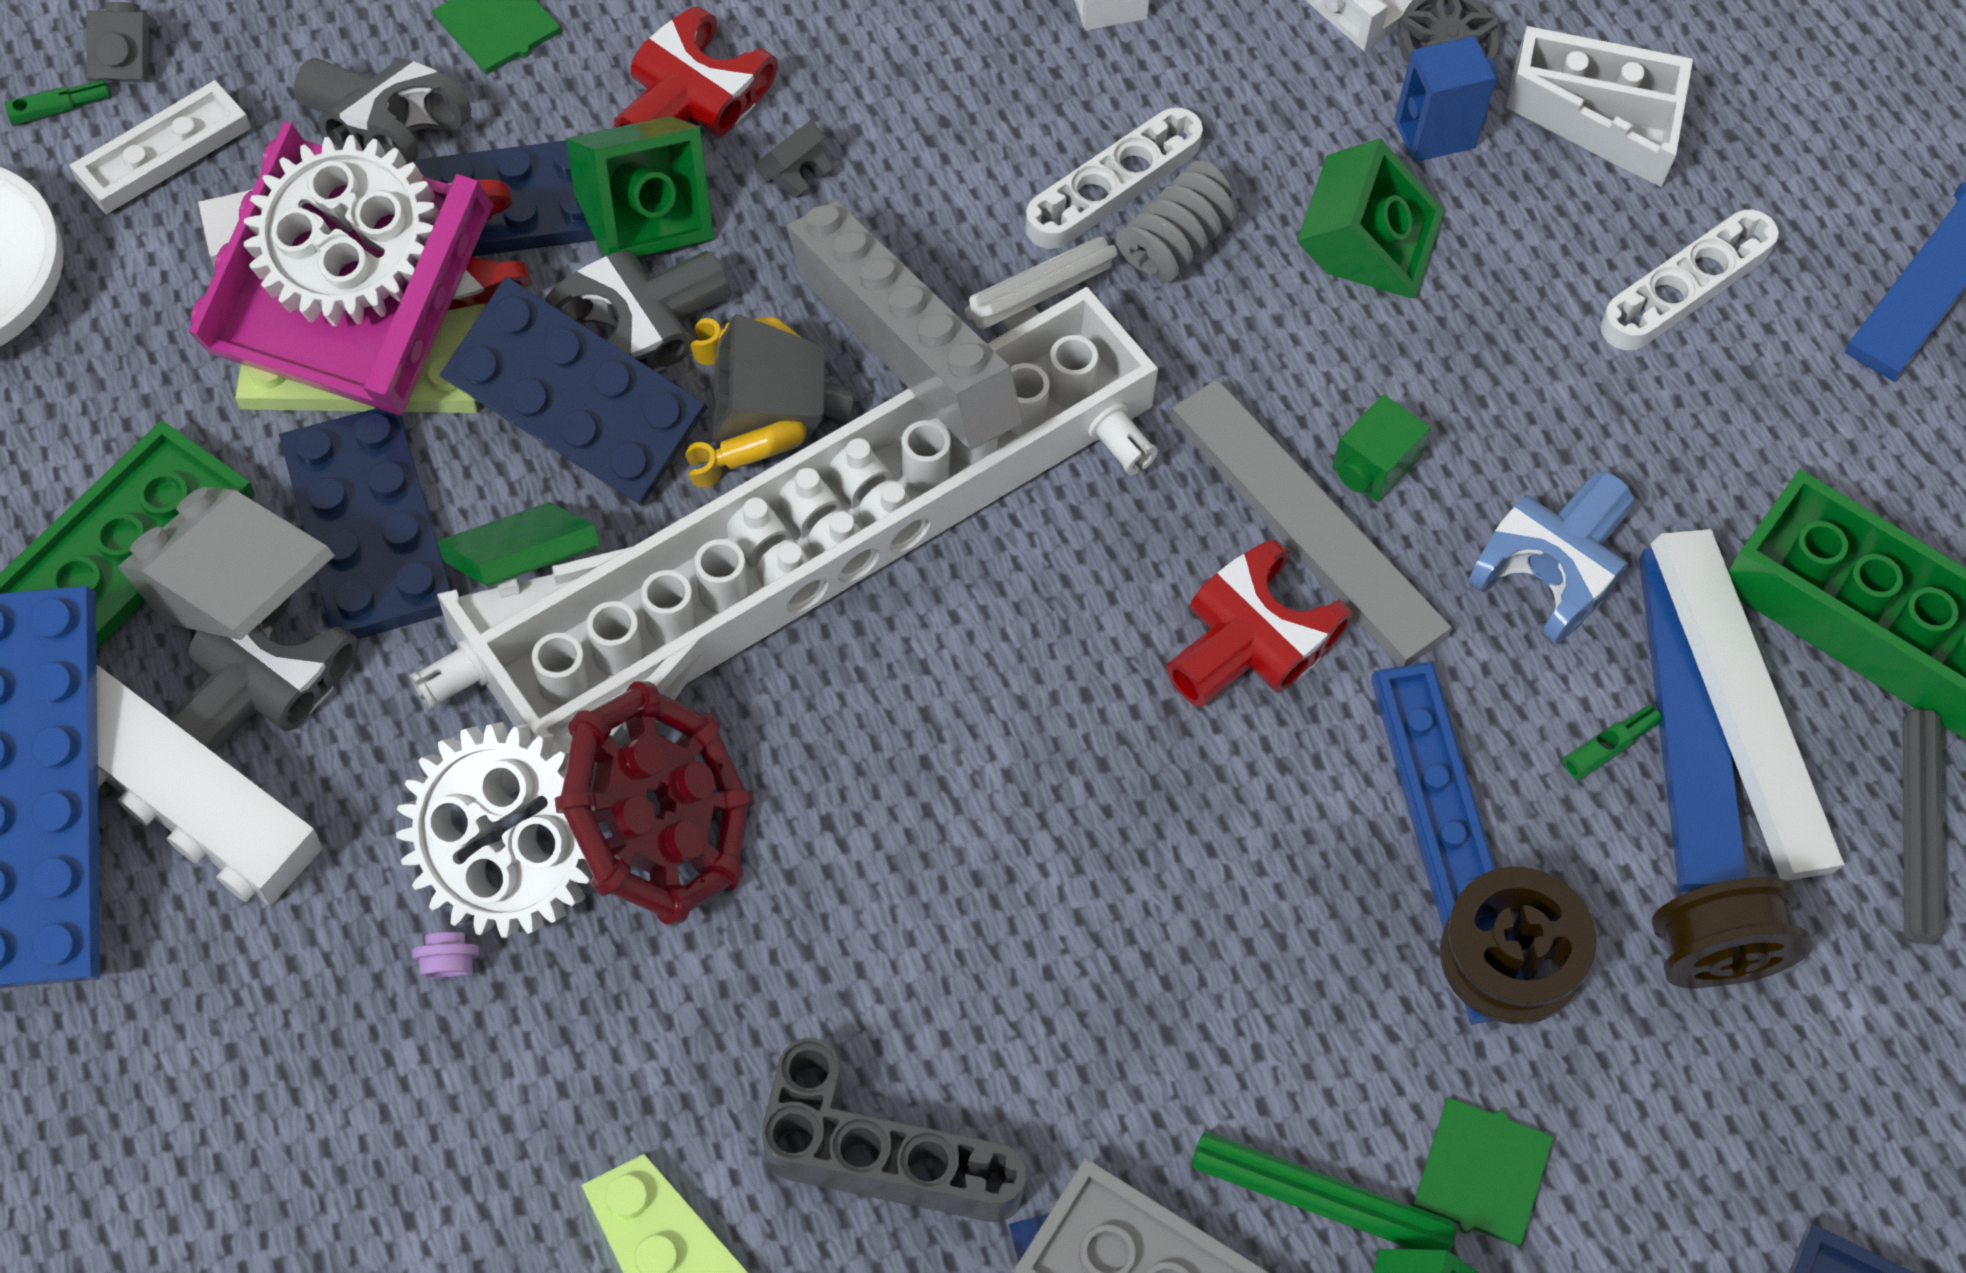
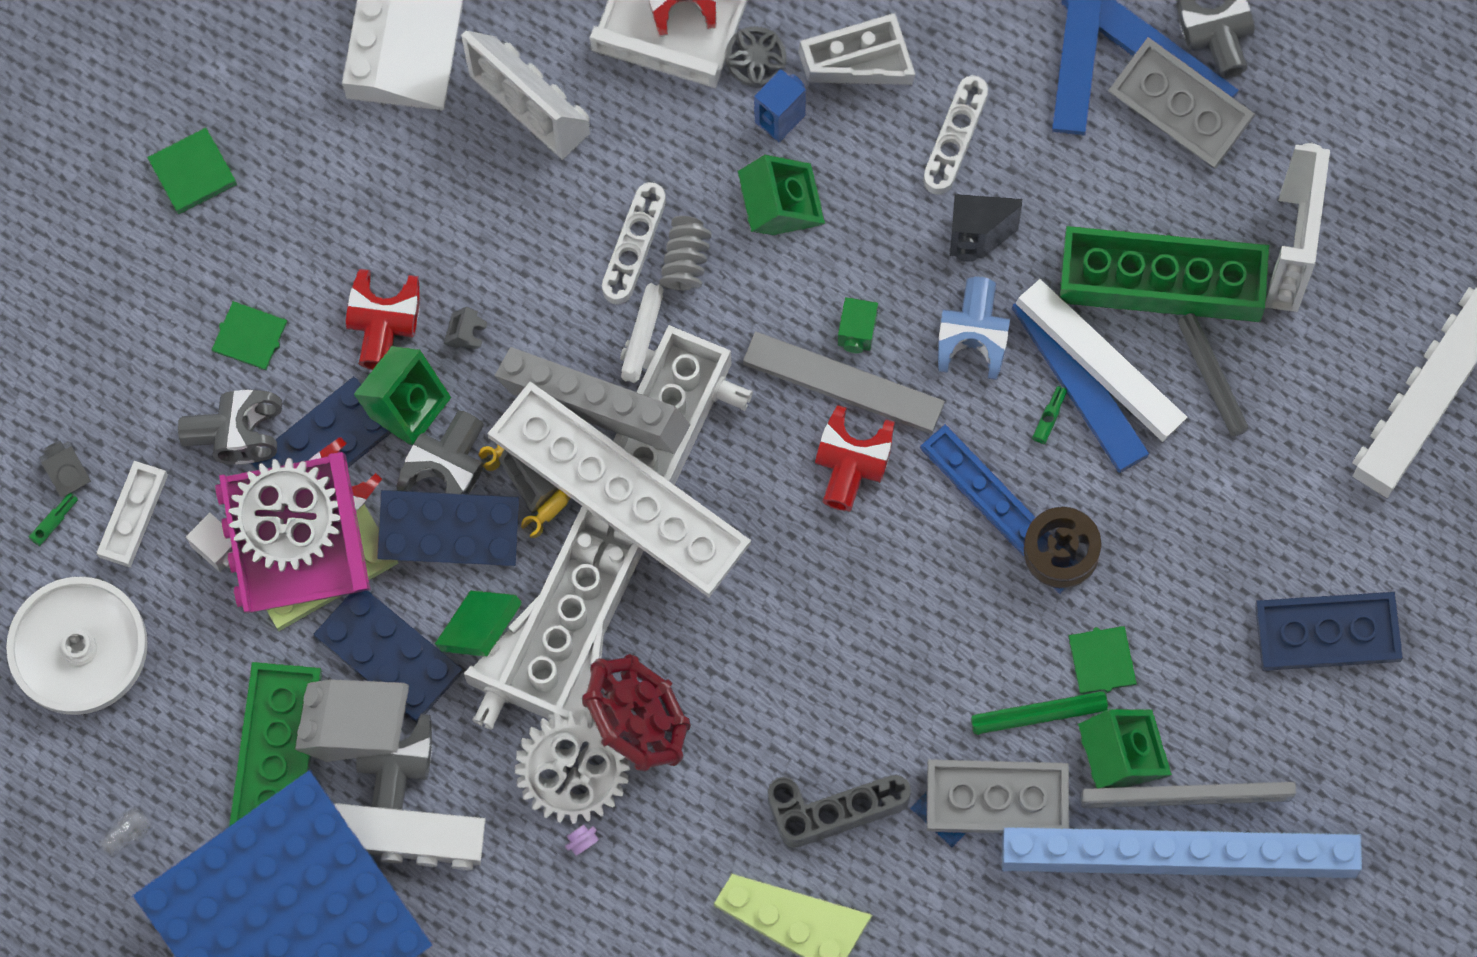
camera: 25 degrees left, 10 degrees up
(857, 466) = (619, 489): none -> white plate
(1663, 404) = (982, 224): none -> black slope
(1731, 932) = (1154, 486): dark brown wheel -> none

